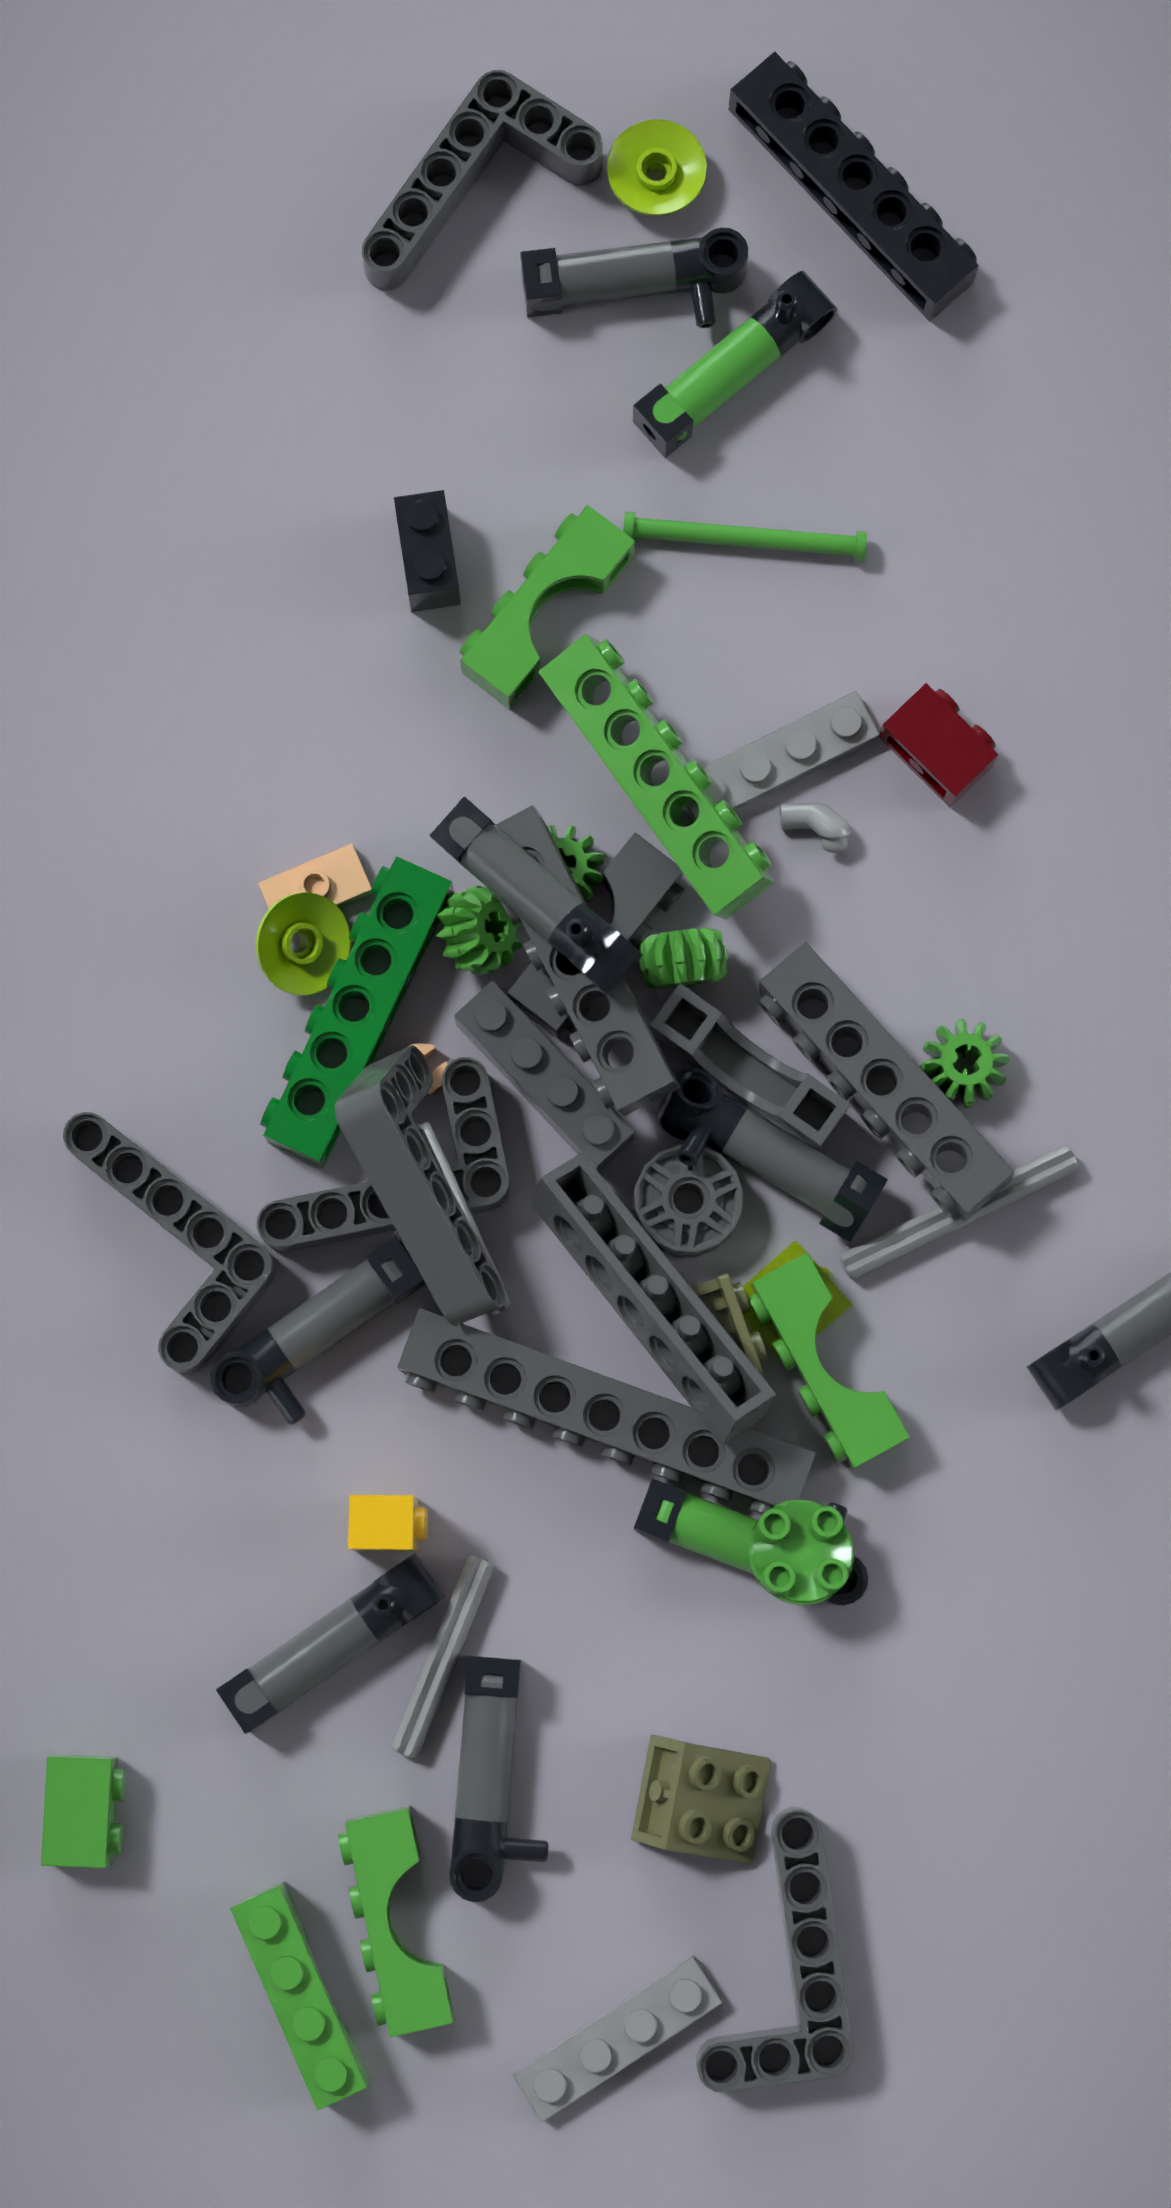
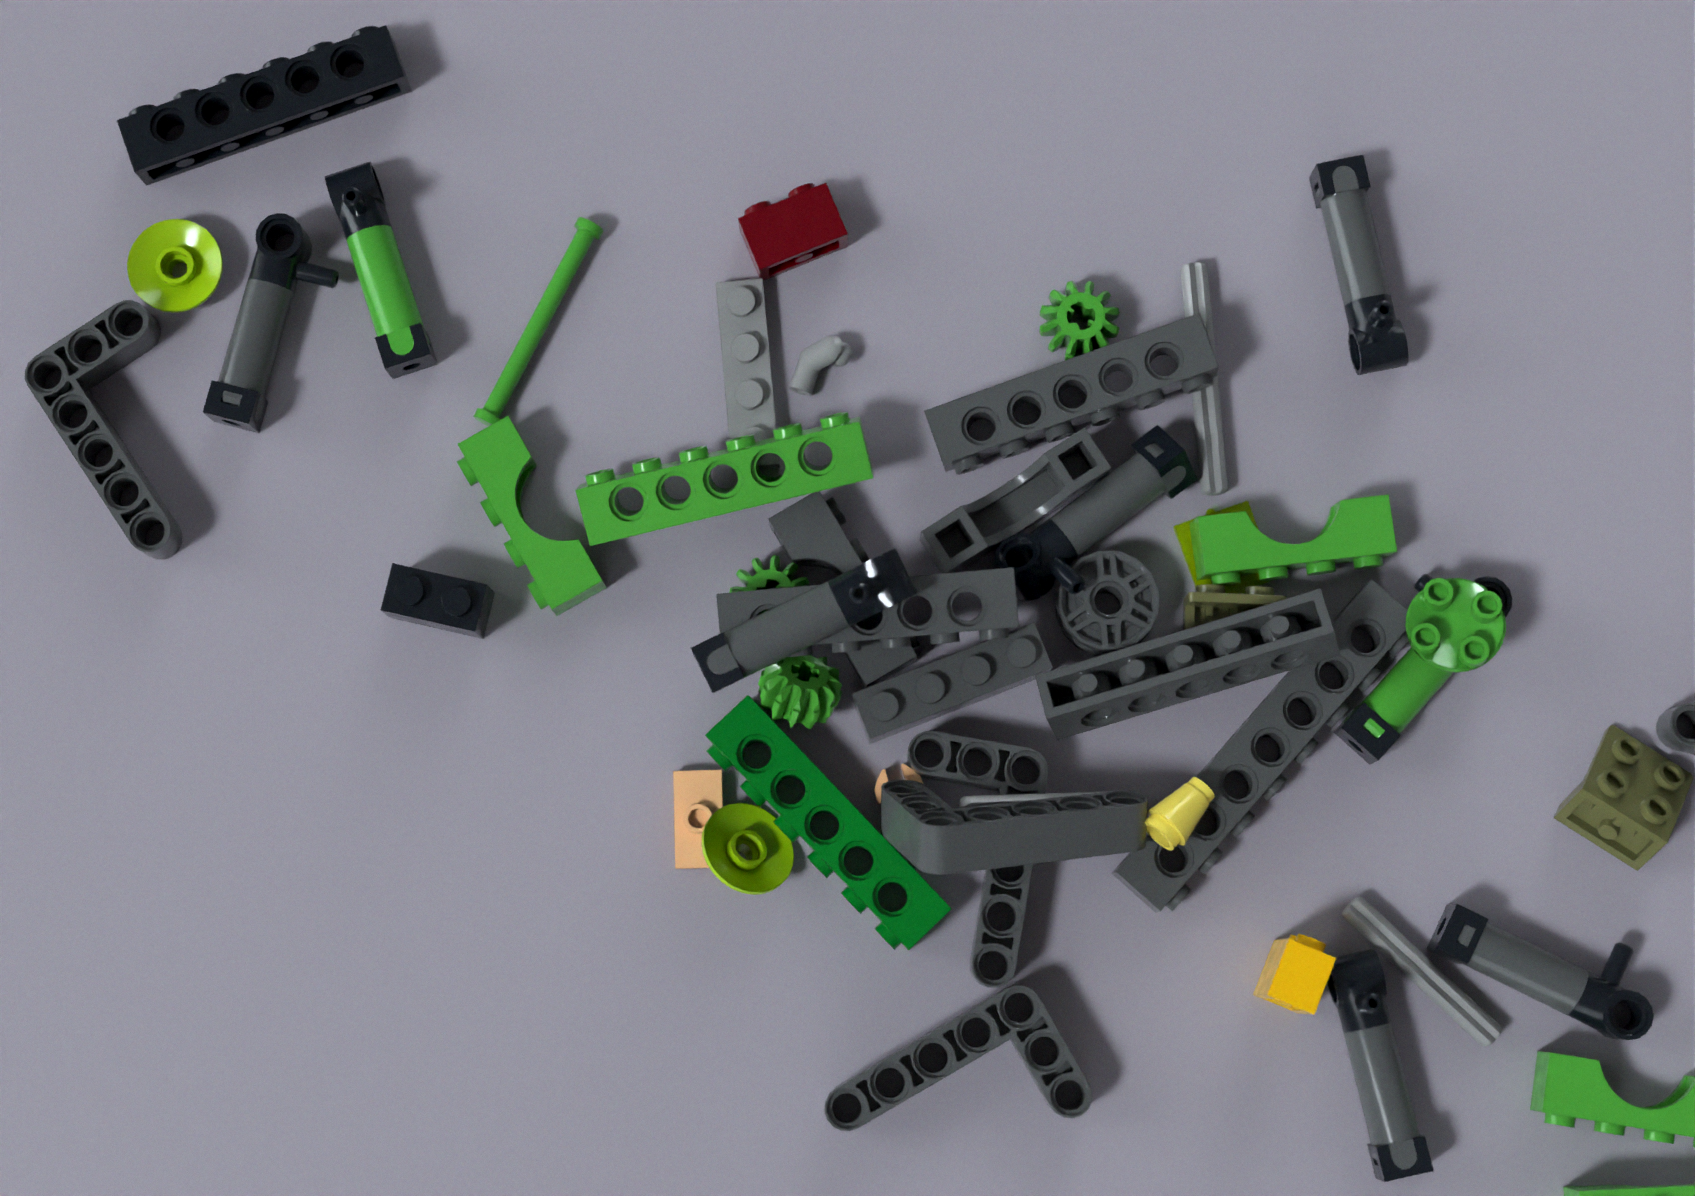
camera: 65 degrees left, 0 degrees up
(316, 1326) = (1093, 969): piece -> none
(498, 1345) = (1178, 814): none -> light yellow cone
(683, 958) = (896, 519): bright green gear -> none

